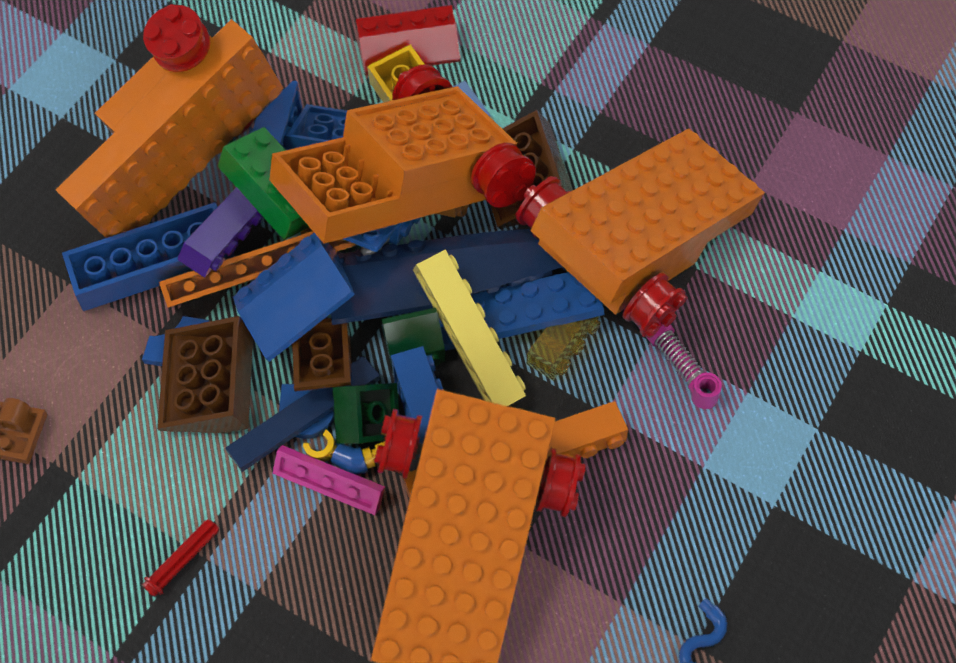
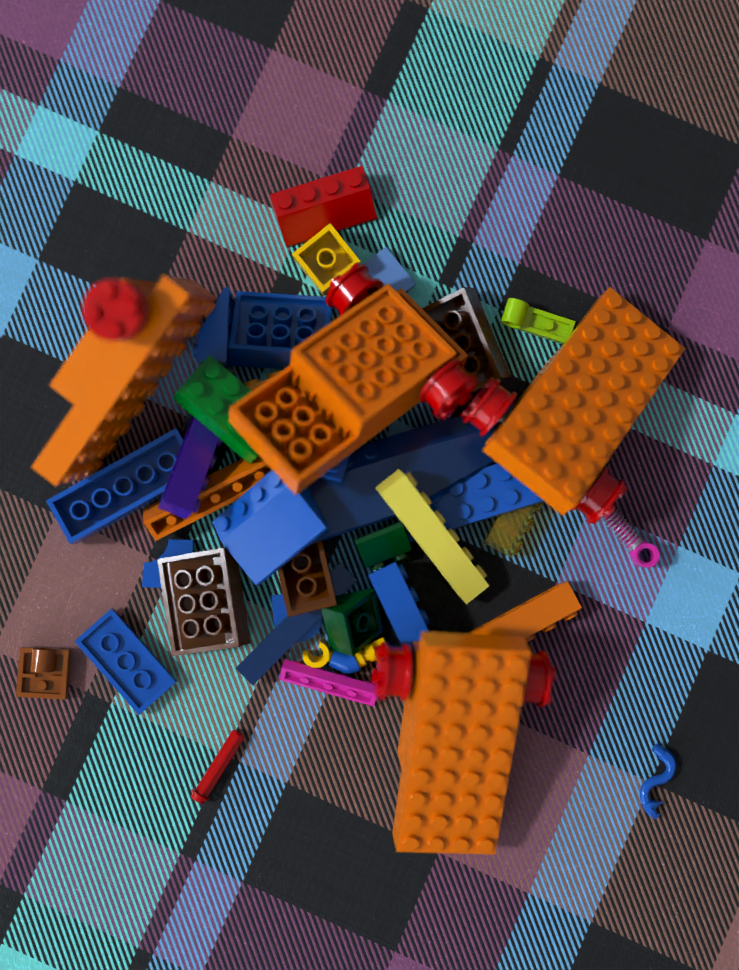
camera: 10 degrees left, 25 degrees up
(105, 431) = (125, 661): none -> blue plate
(596, 154) = (536, 322): none -> lime plate

